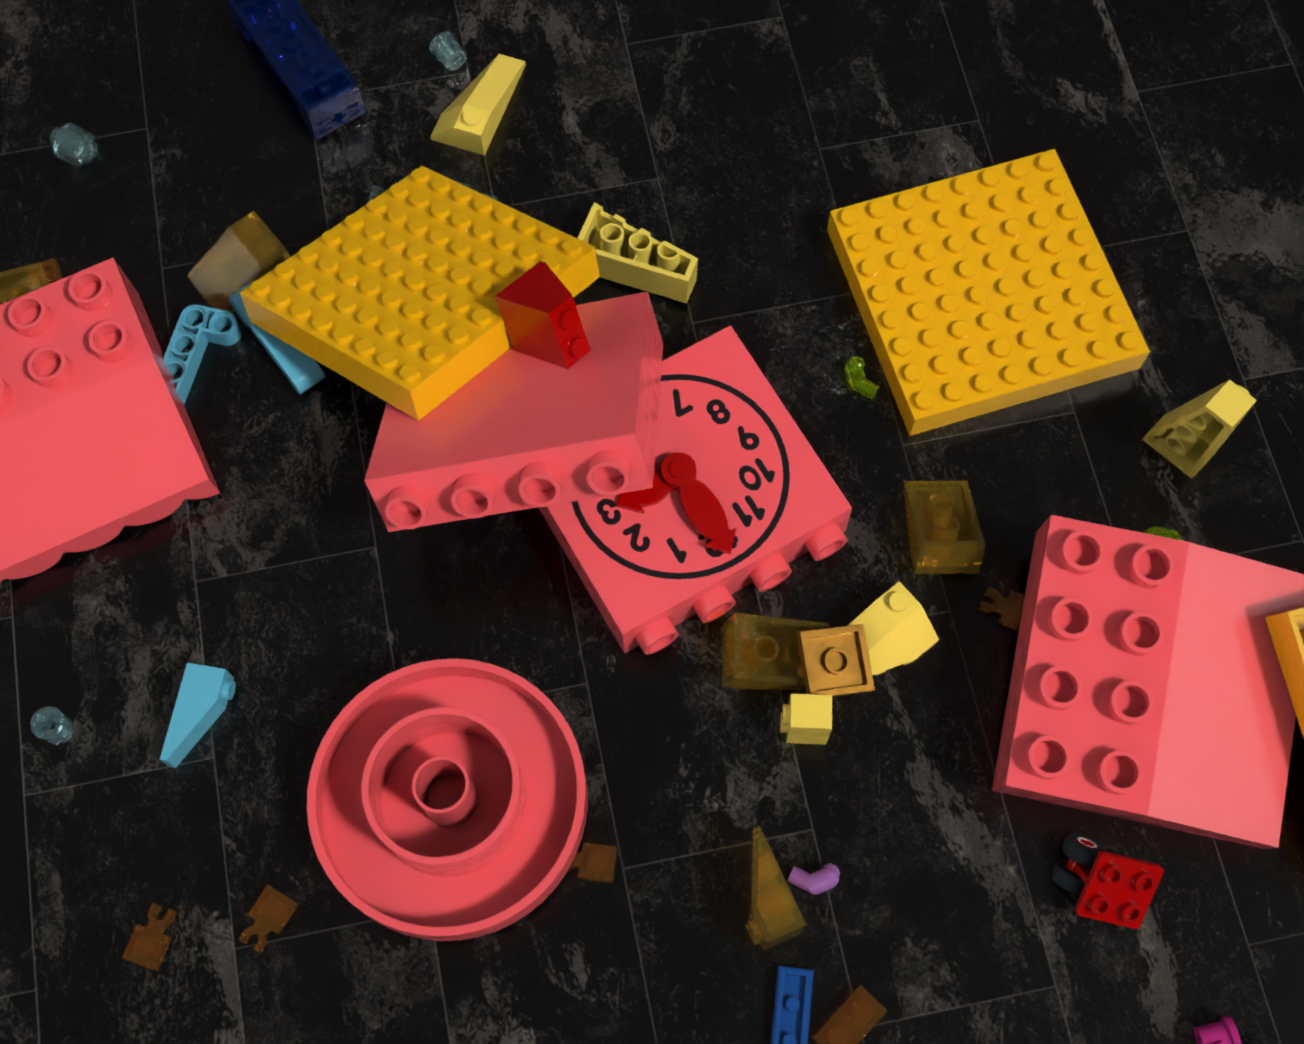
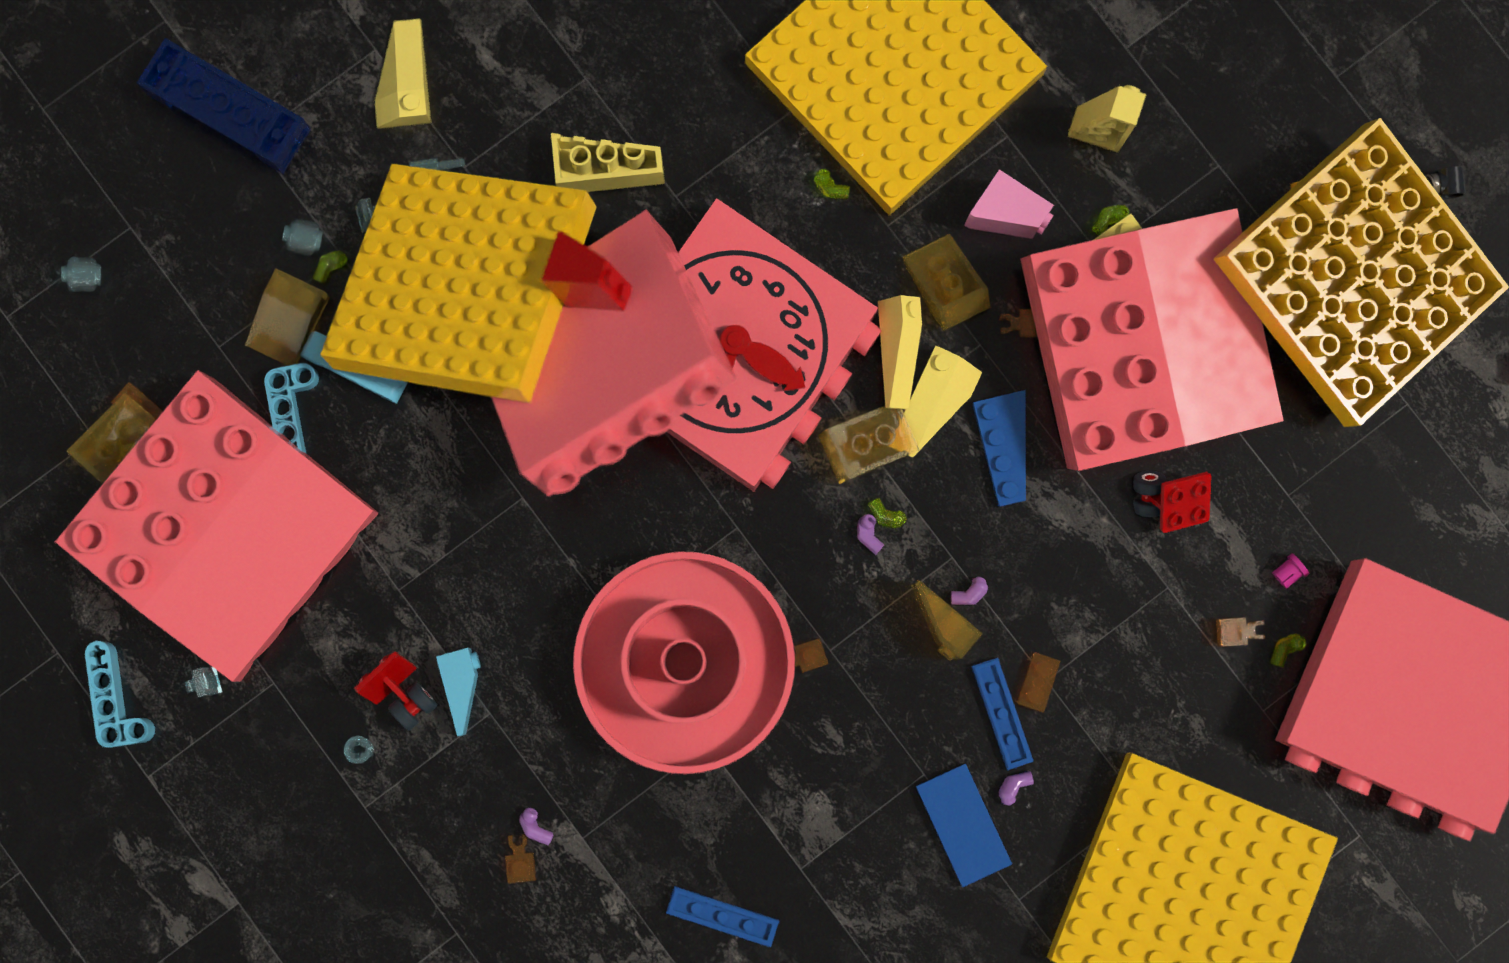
camera: 30 degrees left, 15 degrees up
(124, 662) = (385, 679): none -> red plate
(183, 906) = (531, 828): none -> medium lavender arm
(270, 912) = (595, 801): clear orange plate -> none
(300, 200) = (302, 237): none -> clear light blue head
(306, 237) = (328, 263): none -> clear neon green arm
(448, 51) = (351, 41): clear light blue bush -> none
(727, 754) = (865, 533): none -> medium lavender arm
(757, 747) = (886, 517): none -> clear neon green arm
(807, 719) = (914, 482): light yellow brick -> none
(835, 661) = (916, 430): pearl gold plate -> none
(860, 563) = (900, 339): none -> light yellow wedge
(930, 726) = (1004, 442): none -> blue wing
(1045, 476) = (1010, 209): none -> bright pink slope

